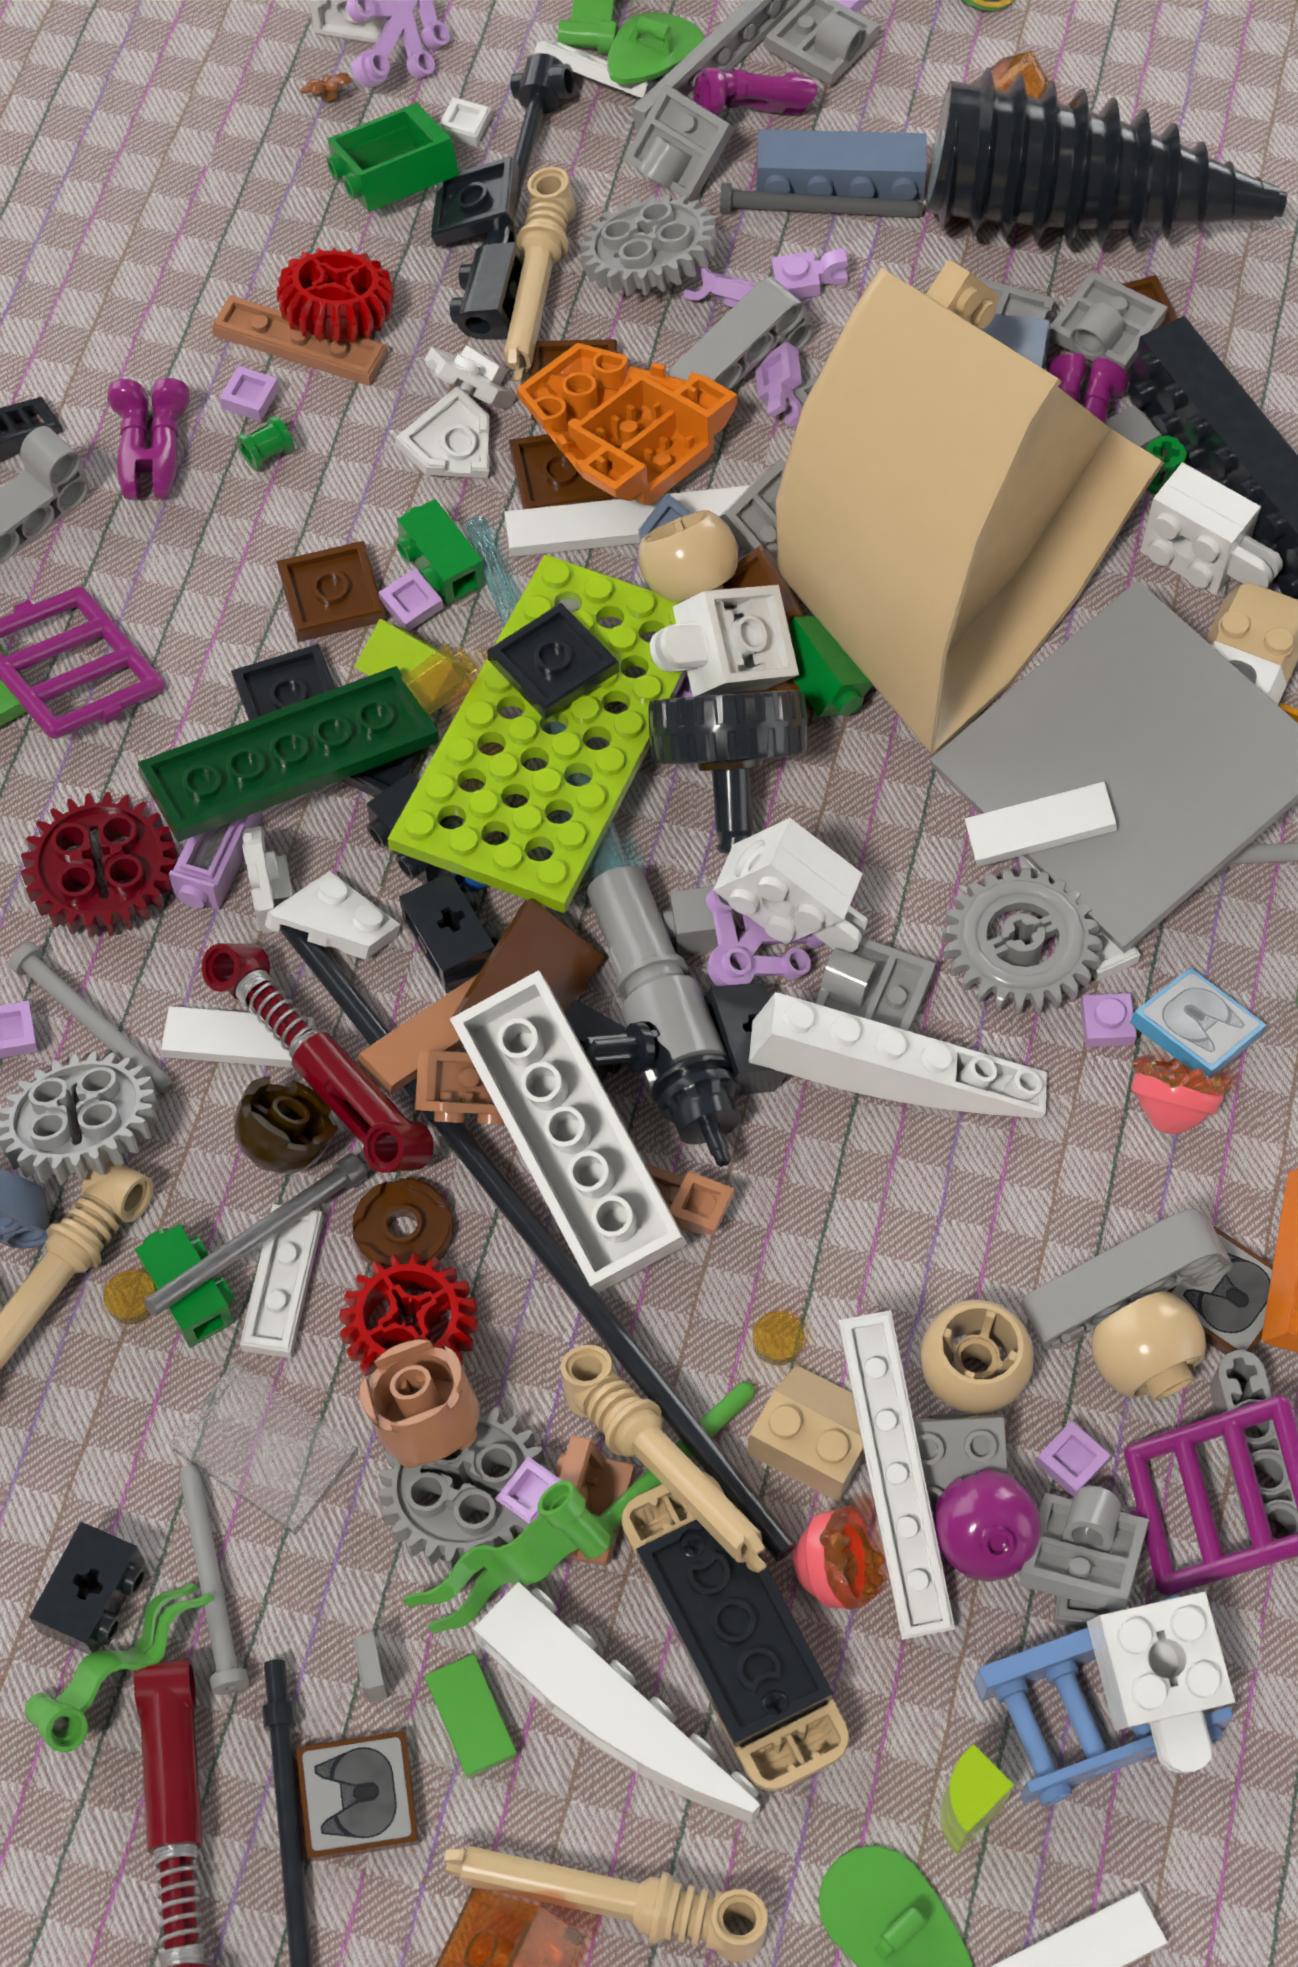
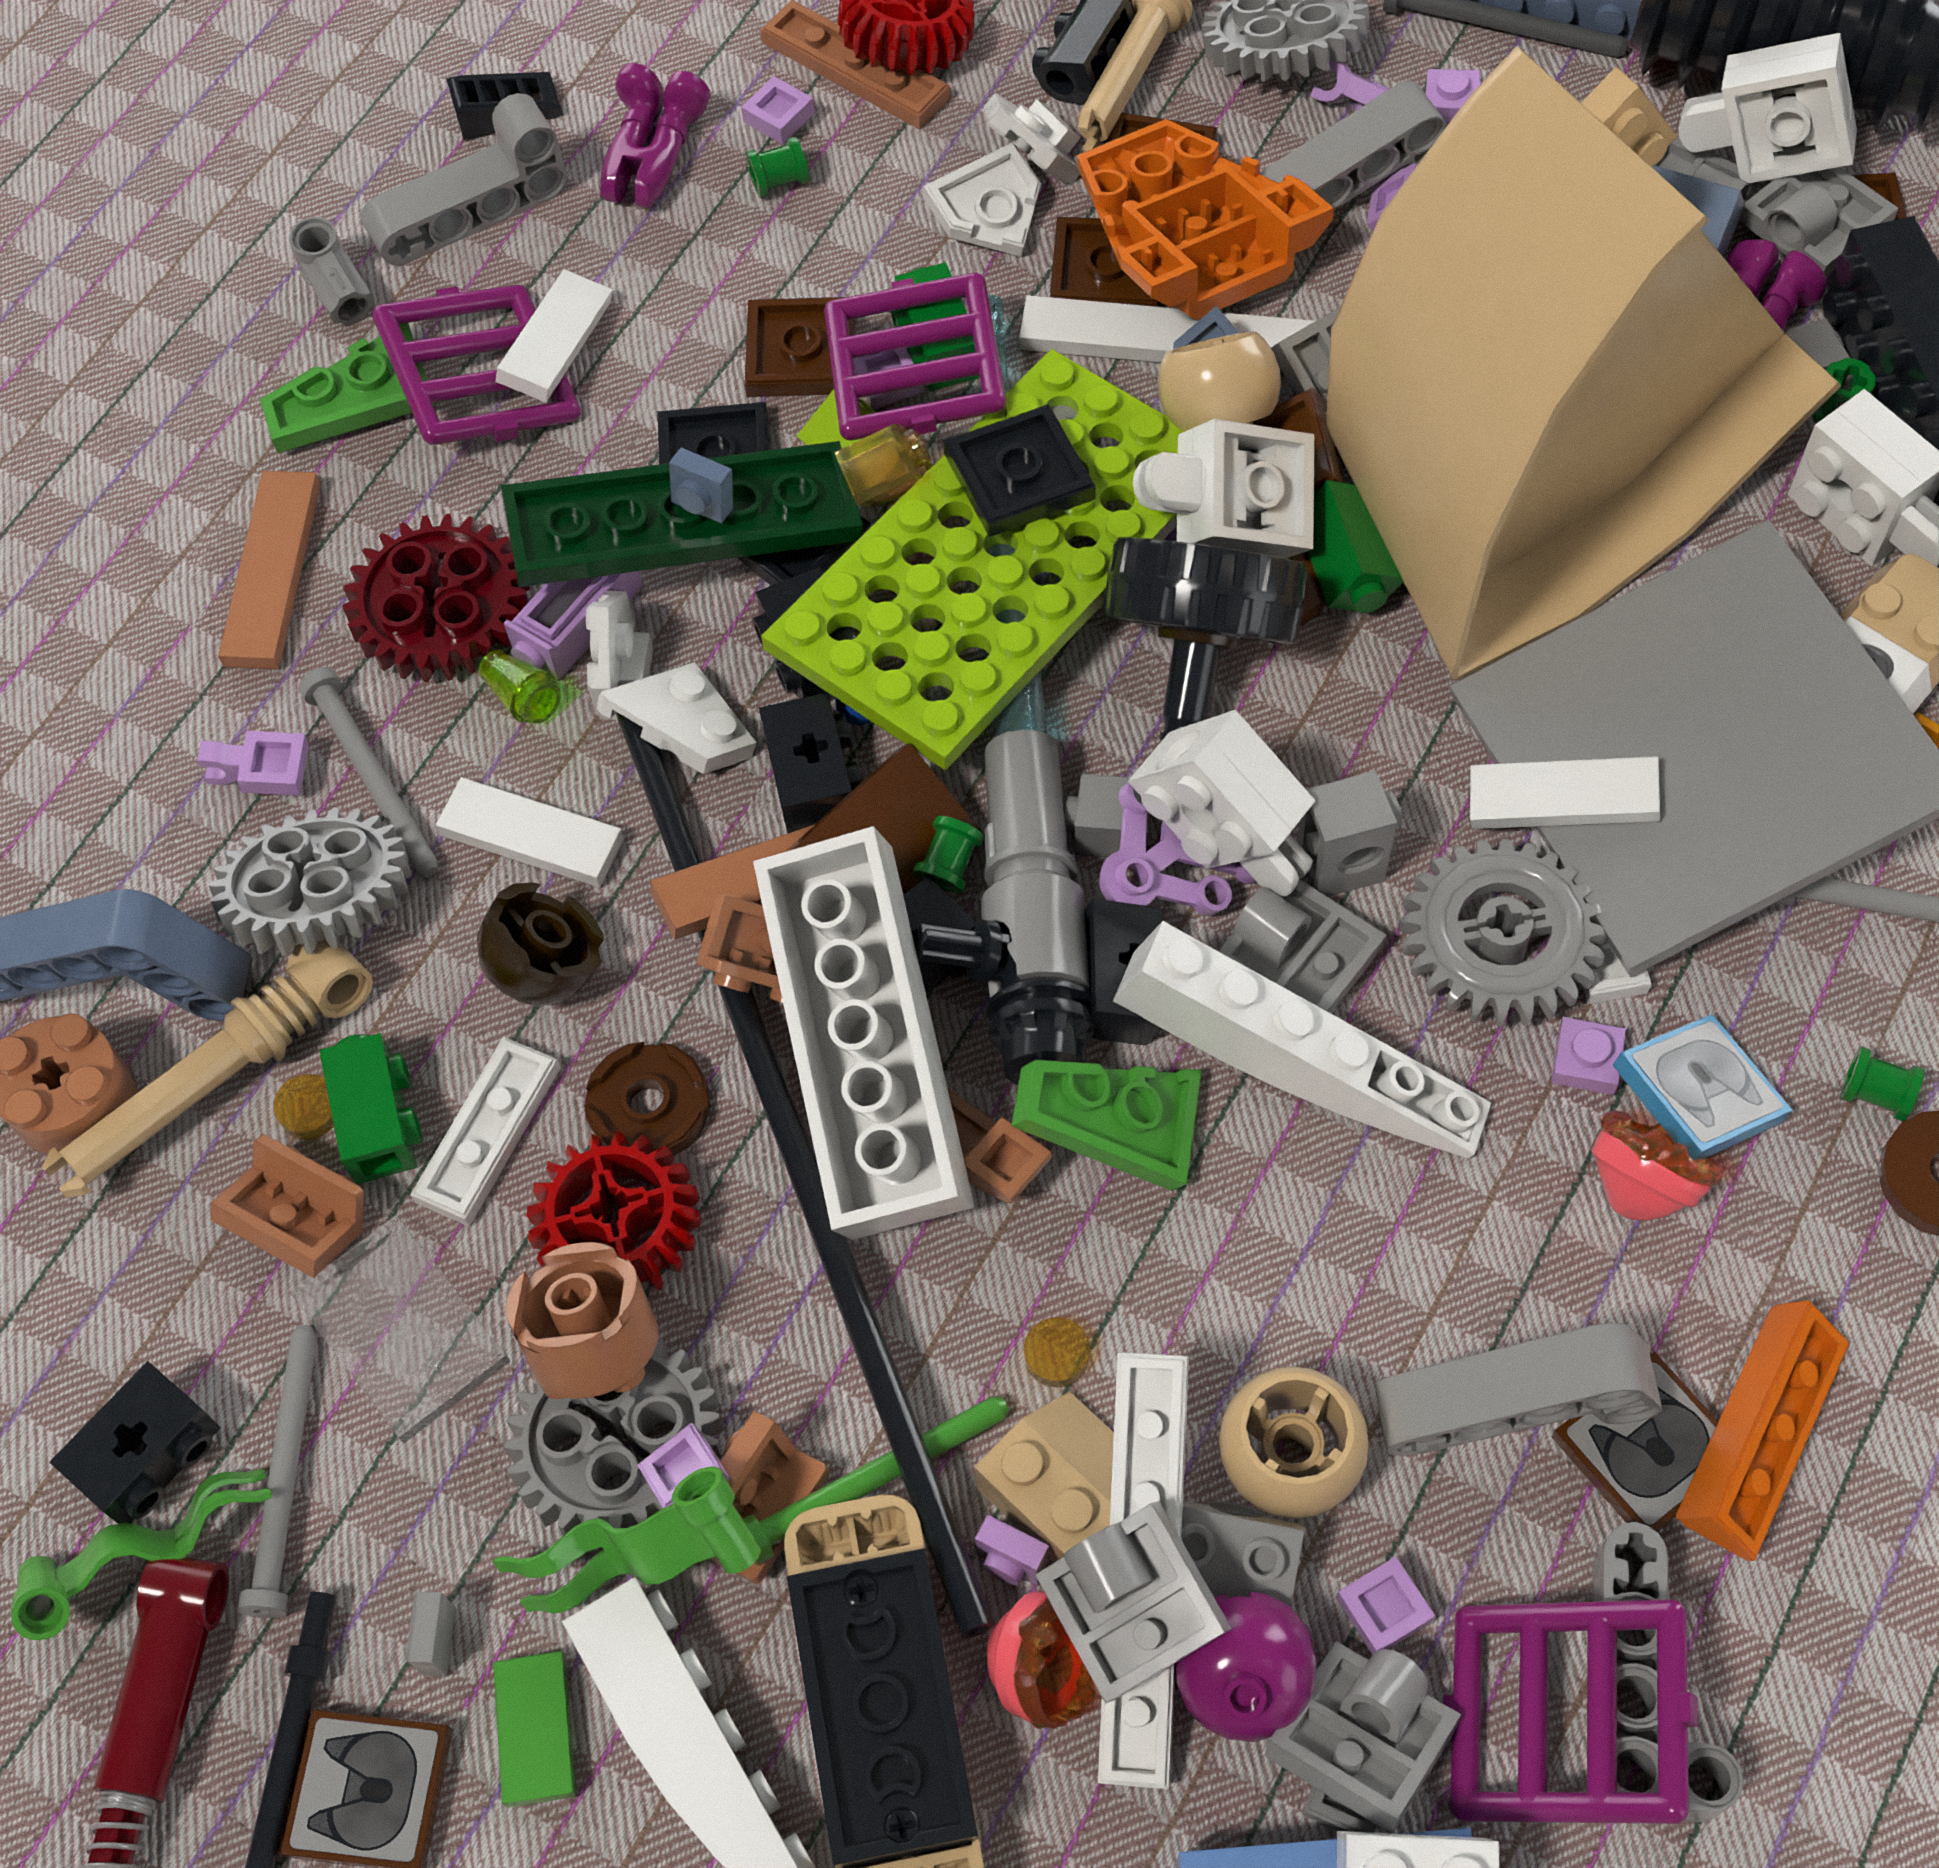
camera: 20 degrees right, 0 degrees up
(125, 624) = (554, 335): none -> white tile
(149, 1376) = (292, 1207): none -> nougat bracket
(192, 921) = (521, 687): none -> clear neon green cone
(304, 727) = (701, 485): none -> sand blue plate
(345, 1174) = (599, 1020): flat silver bar -> none
(387, 1136) = (652, 986): dark red piece -> none
(460, 633) = (905, 295): none -> magenta bar
(585, 977) = (949, 853): none -> green bush
(635, 1429) = (835, 1423): tan piece -> none
(773, 1149) = (1115, 1116): none -> bright green wing
(791, 1491) = (1010, 1552): none -> lavender plate
(890, 891) = (1349, 833): none -> light grey brick
(898, 1497) = (1132, 1601): none -> light grey plate
(1064, 266) = (1783, 135): none -> white brick
(1149, 1346) = (1523, 1487): tan wheel -> none

